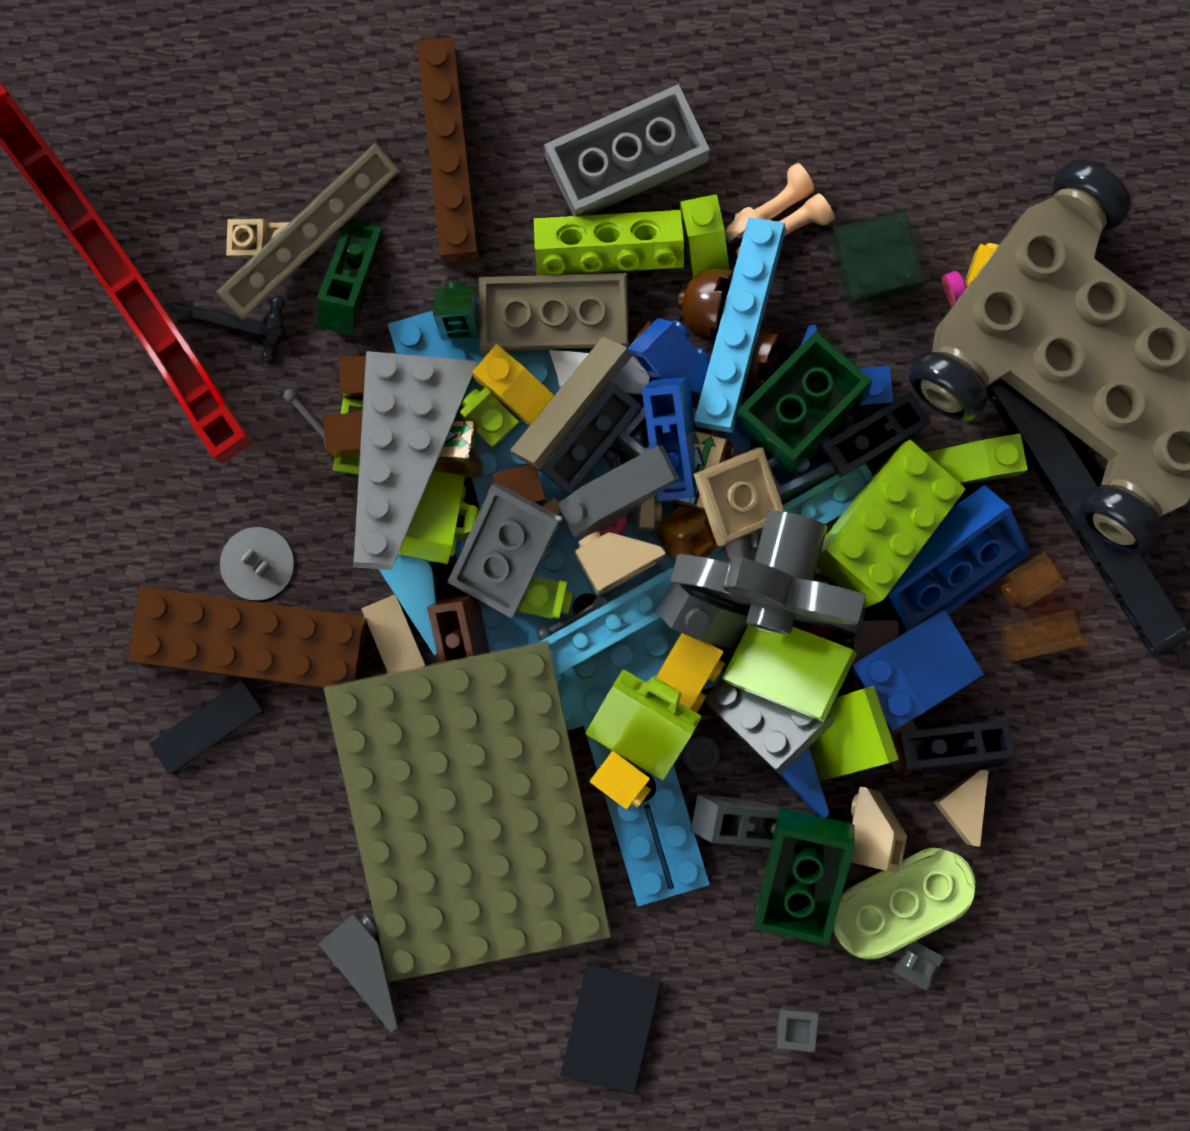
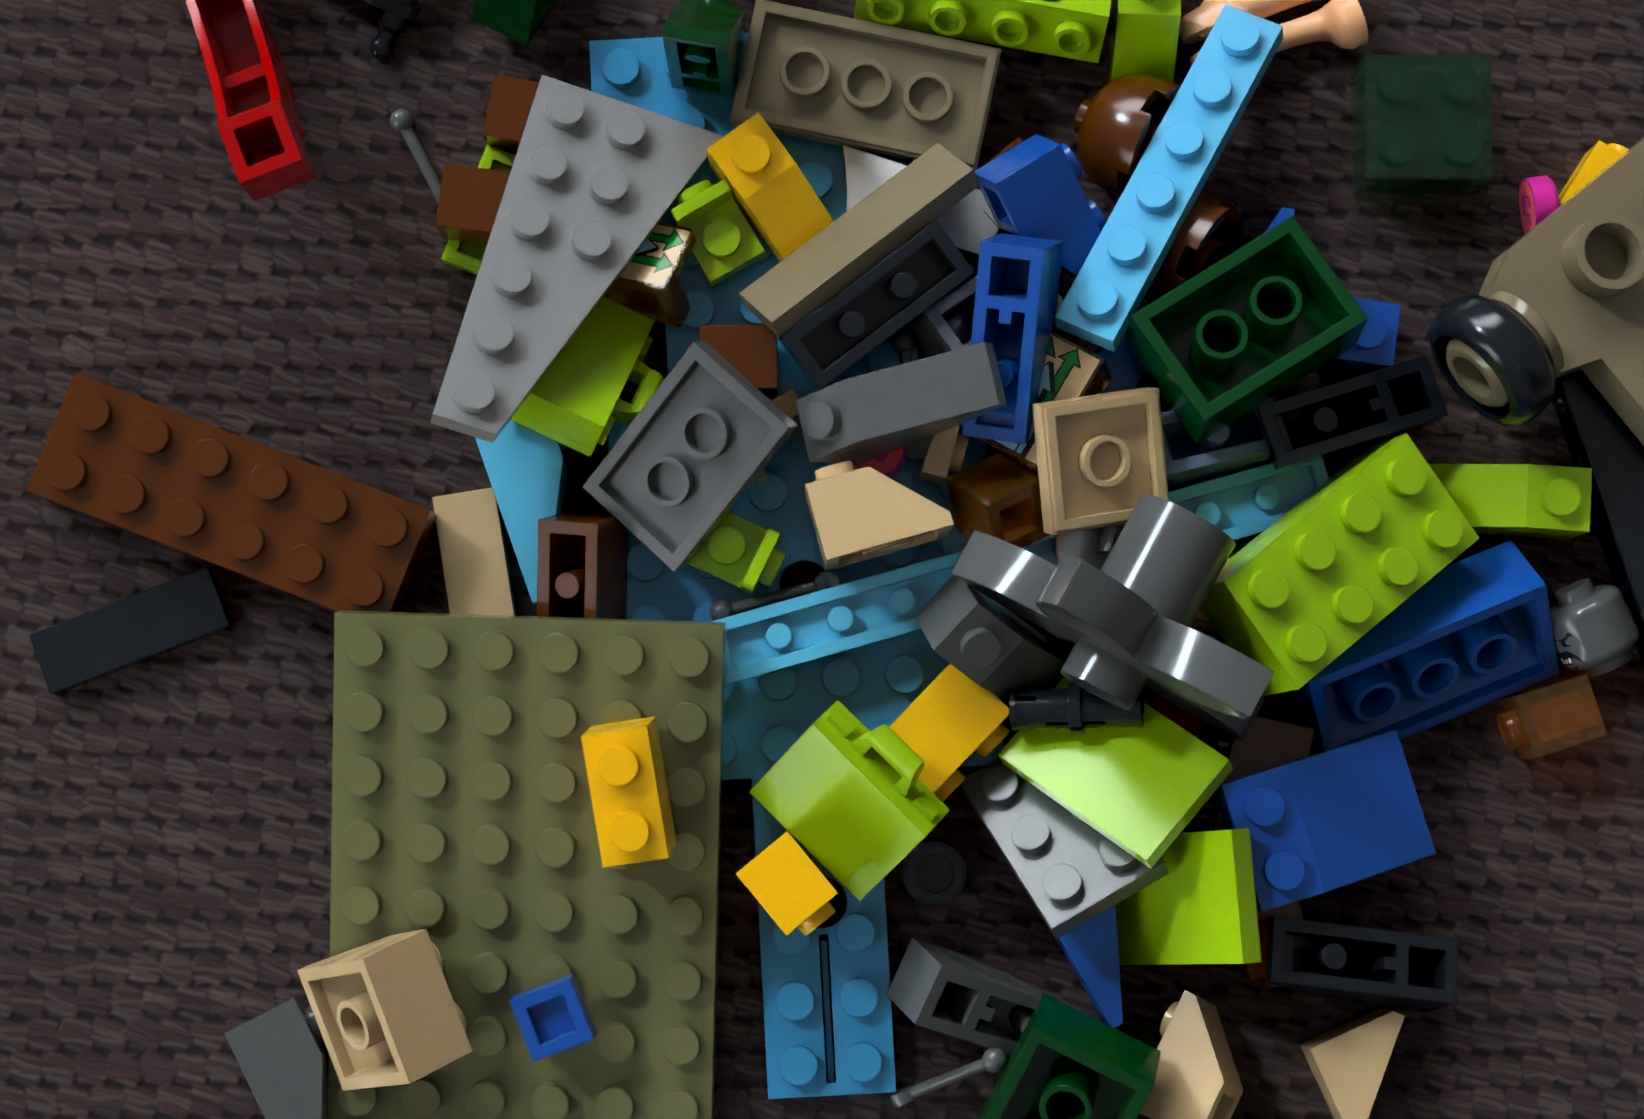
camera: 10 degrees right, 0 degrees up
(256, 563) = (279, 383): light grey piece -> none
(408, 908) = (386, 1011): none -> tan slope
(504, 888) = (553, 1017): none -> blue plate
(517, 749) = (629, 792): none -> yellow brick
(756, 642) = (1069, 709): none -> black pin
(760, 853) = (993, 1061): none -> dark grey hinge
(1041, 635) = (1545, 812): clear orange panel -> none
(1043, 524) = (1592, 628): none -> dark grey head

